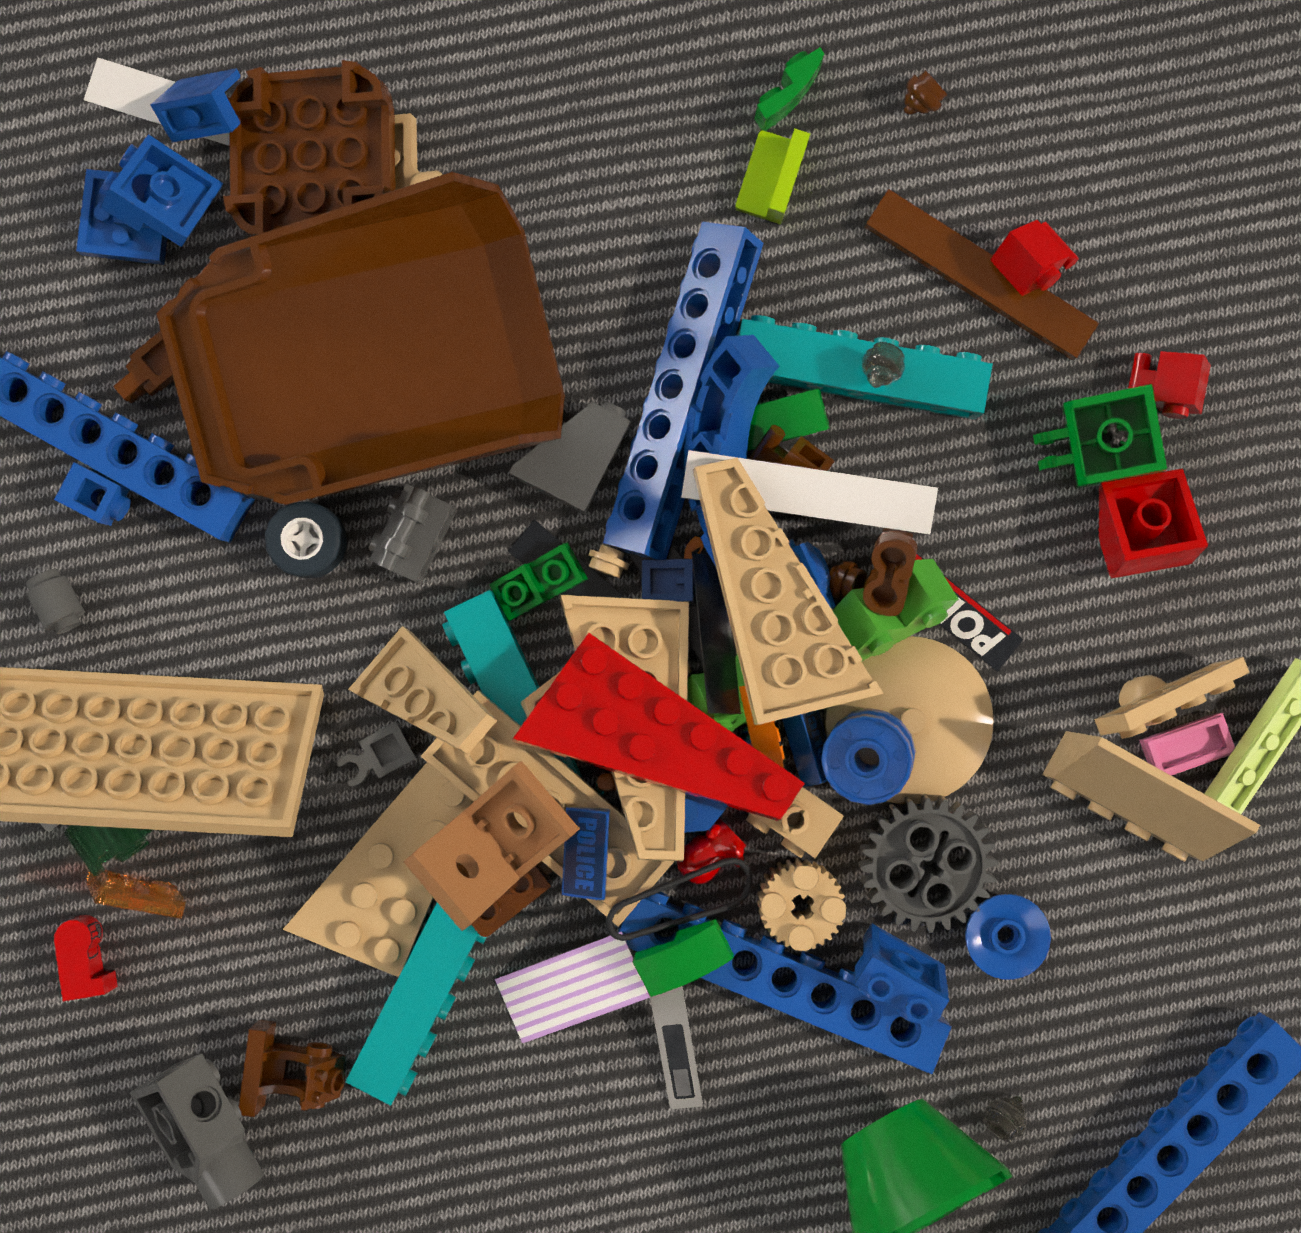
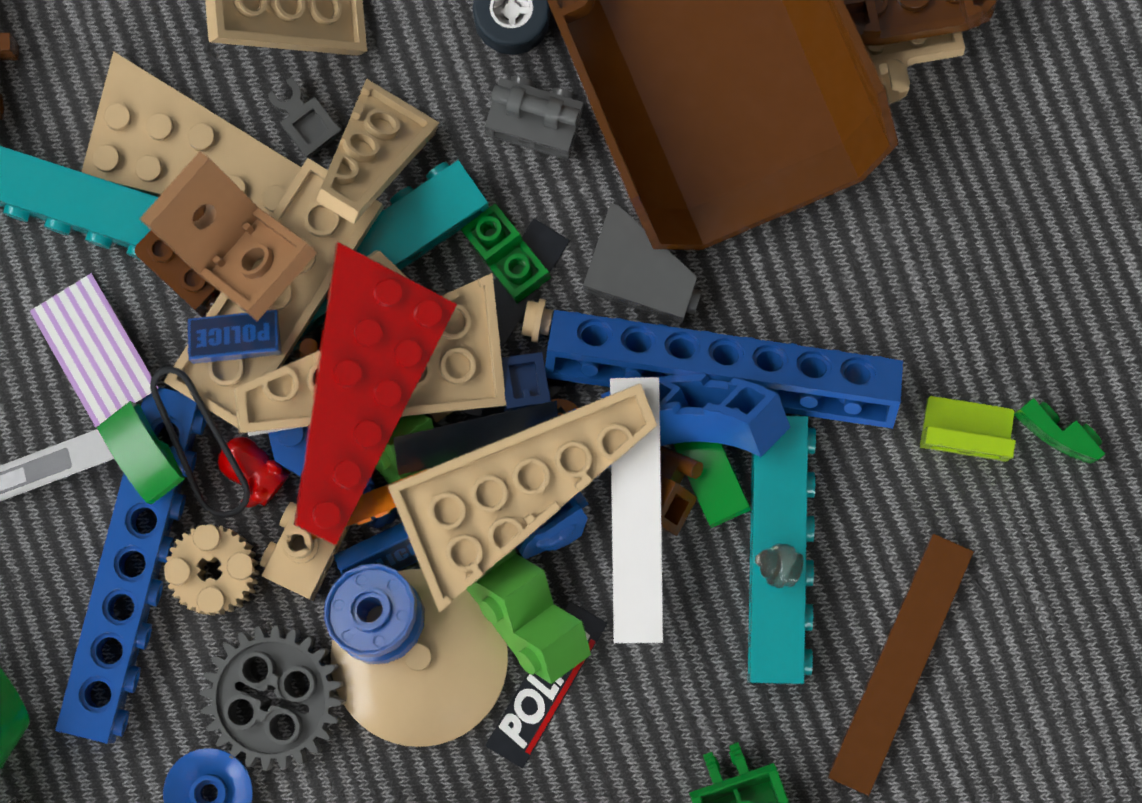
camera: 80 degrees right, 5 degrees down
(845, 578) = (557, 567): reddish brown plate -> none
(893, 566) = (577, 603): reddish brown piece -> none
(901, 977) = (151, 682): blue plate -> none
(923, 94) = (1080, 574): reddish brown plate -> none
(1033, 257) = (926, 713): red brick -> none

